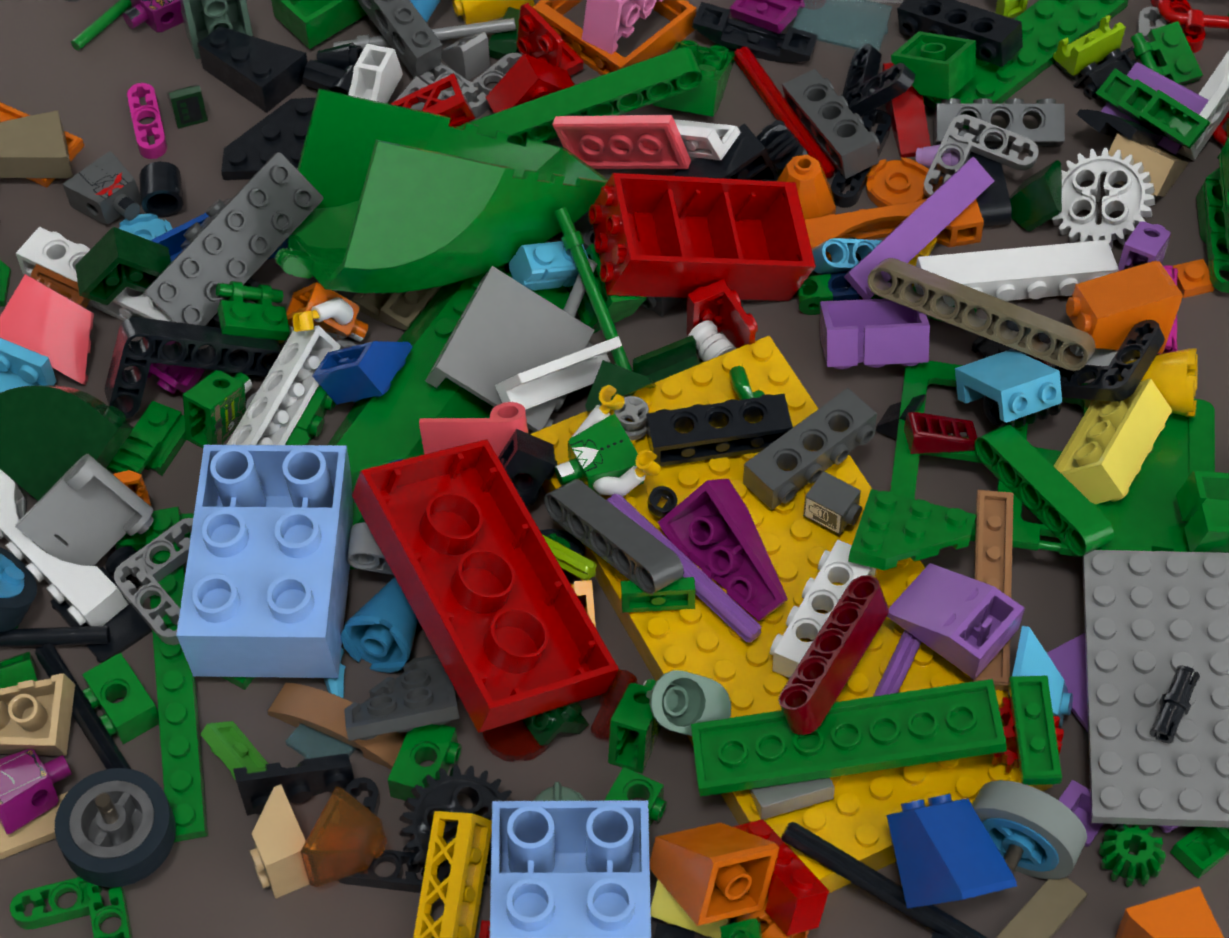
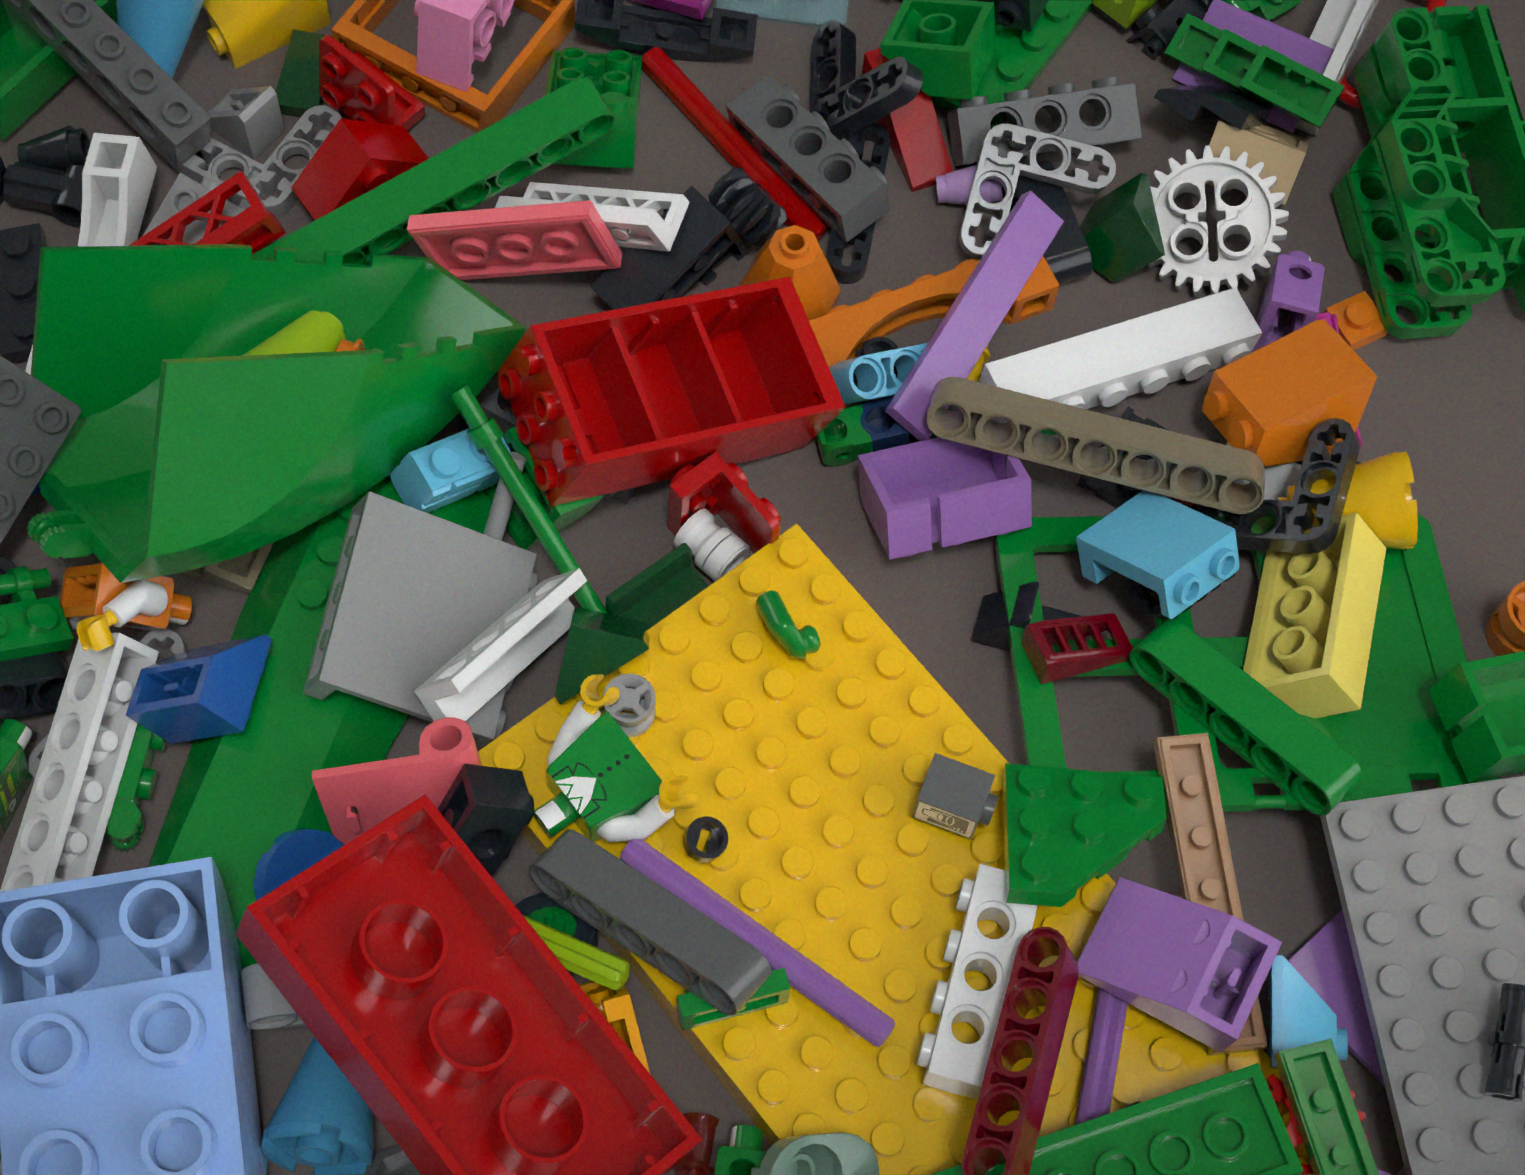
camera: 20 degrees left, 10 degrees up
(443, 33) = (93, 120): light grey bar -> none
(705, 441) = (696, 744): black brick -> none
(724, 542) = (812, 891): magenta wedge -> none
(843, 413) = (940, 645): dark grey brick -> none
(897, 182) = (919, 236): orange tile -> none

